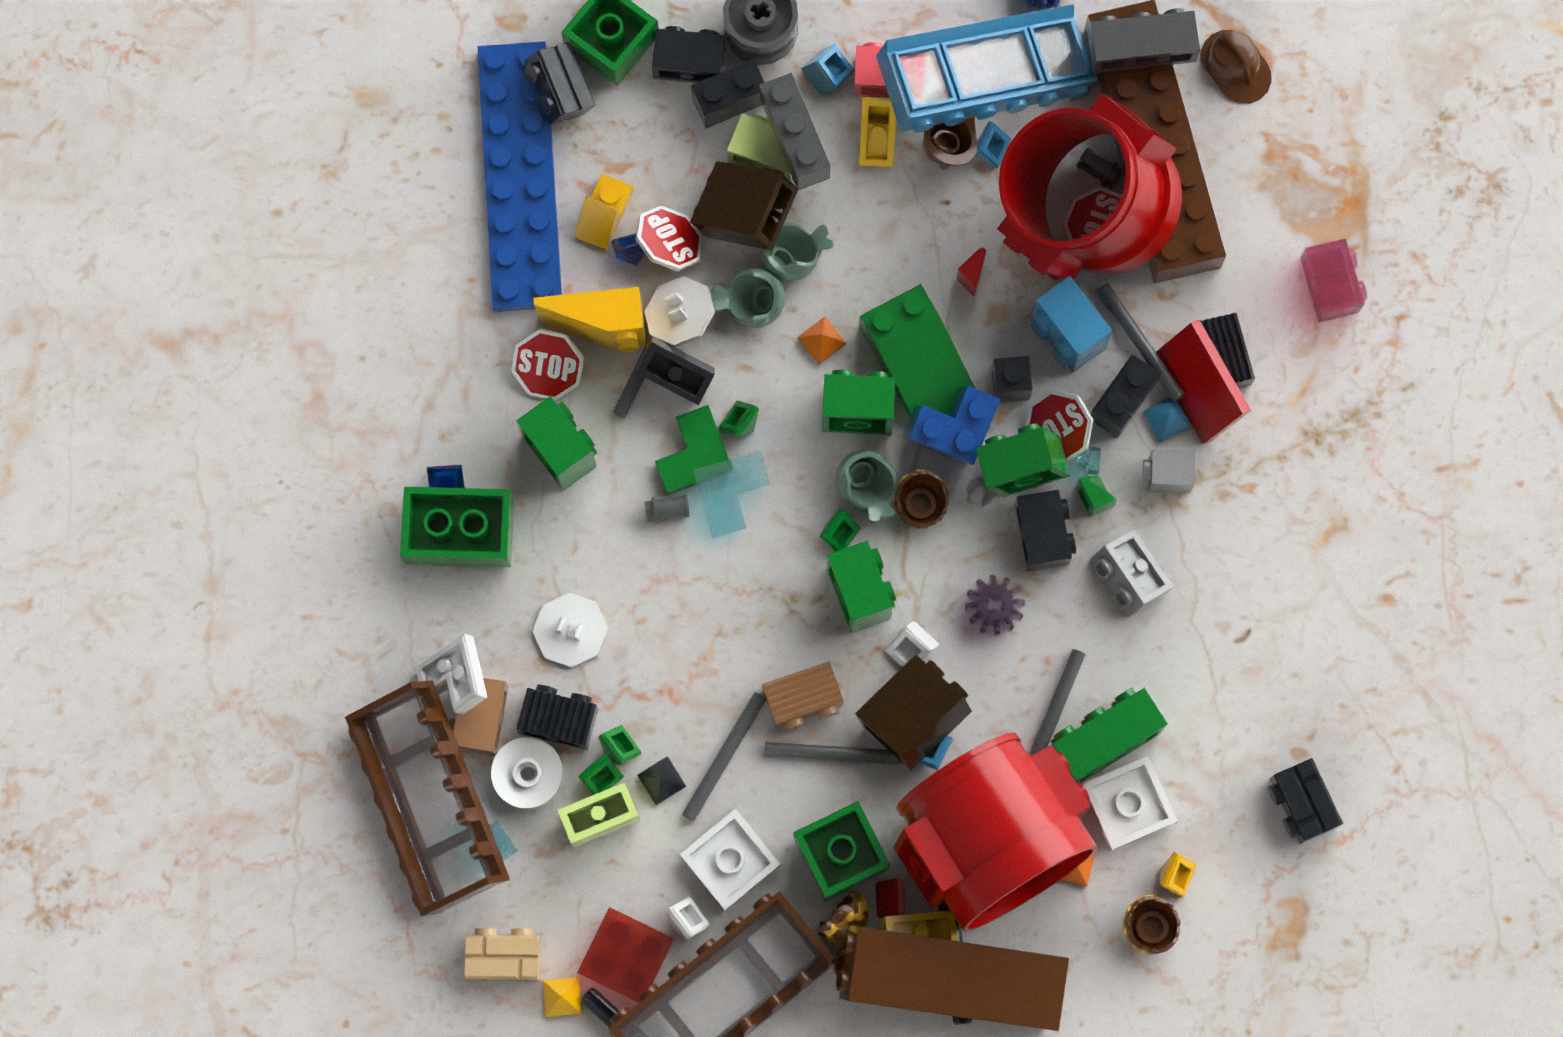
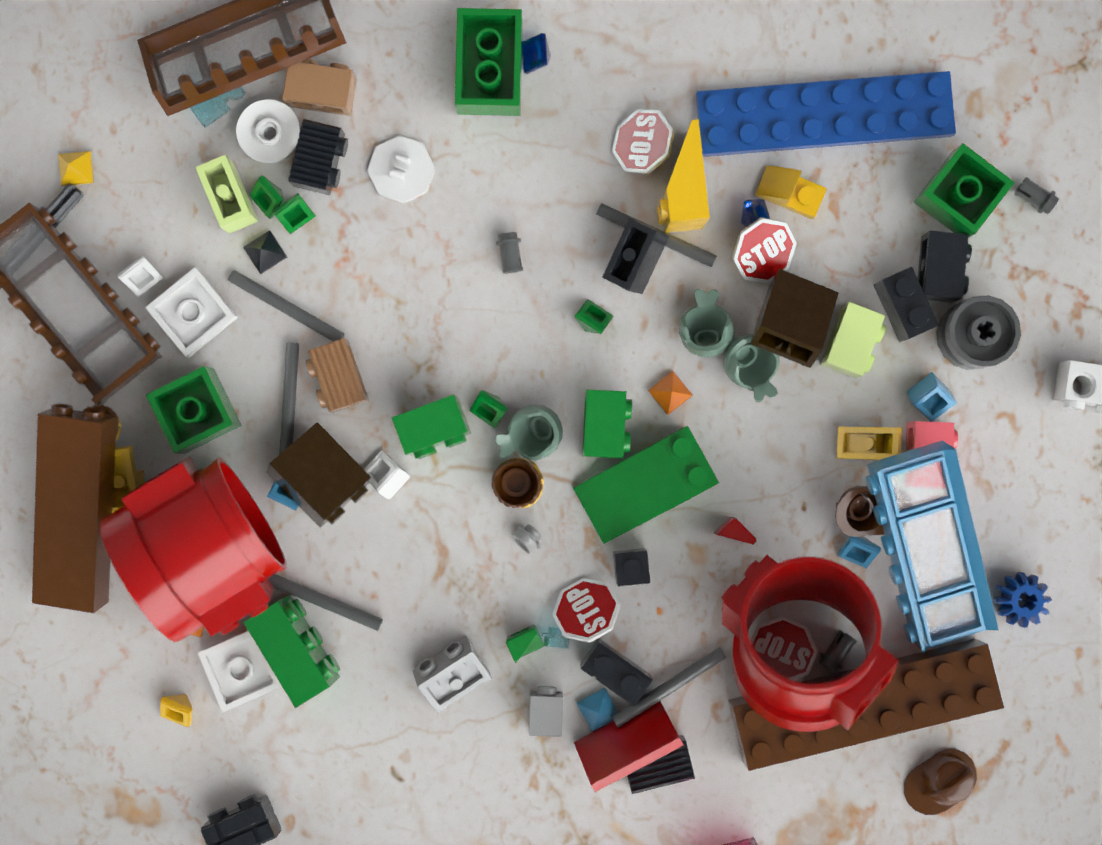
camera: 90 degrees right, 10 degrees up
(458, 670) = (356, 63): white tile -> none
(502, 956) = (106, 114): tan brick -> none
(557, 443) = (566, 149): green brick -> none
(558, 83) = (913, 144): black brick -> none
(625, 955) = (108, 221): clear red plate -> none
(679, 311) = (694, 260): white piece -> none
(703, 449) = (563, 286): green tile -> none
(719, 488) = (533, 302): clear light blue tile -> none
(794, 131) = (866, 363): dark grey brick -> none
(850, 911) = (134, 414): reddish brown hair -> none
(890, 898) = (156, 455): red slope -> none
(959, 432) = (577, 517): blue brick -> none
(996, 593) = (409, 546): clear purple gear -> none
(1022, 460) = (549, 583): green brick -> none
(1044, 530) = (489, 596): black brick -> none
(1070, 325) = (681, 622): dark azure brick -> none
(1143, 40) = (960, 698): dark grey brick -> none
(1151, 925) = (129, 687): reddish brown hair -> none

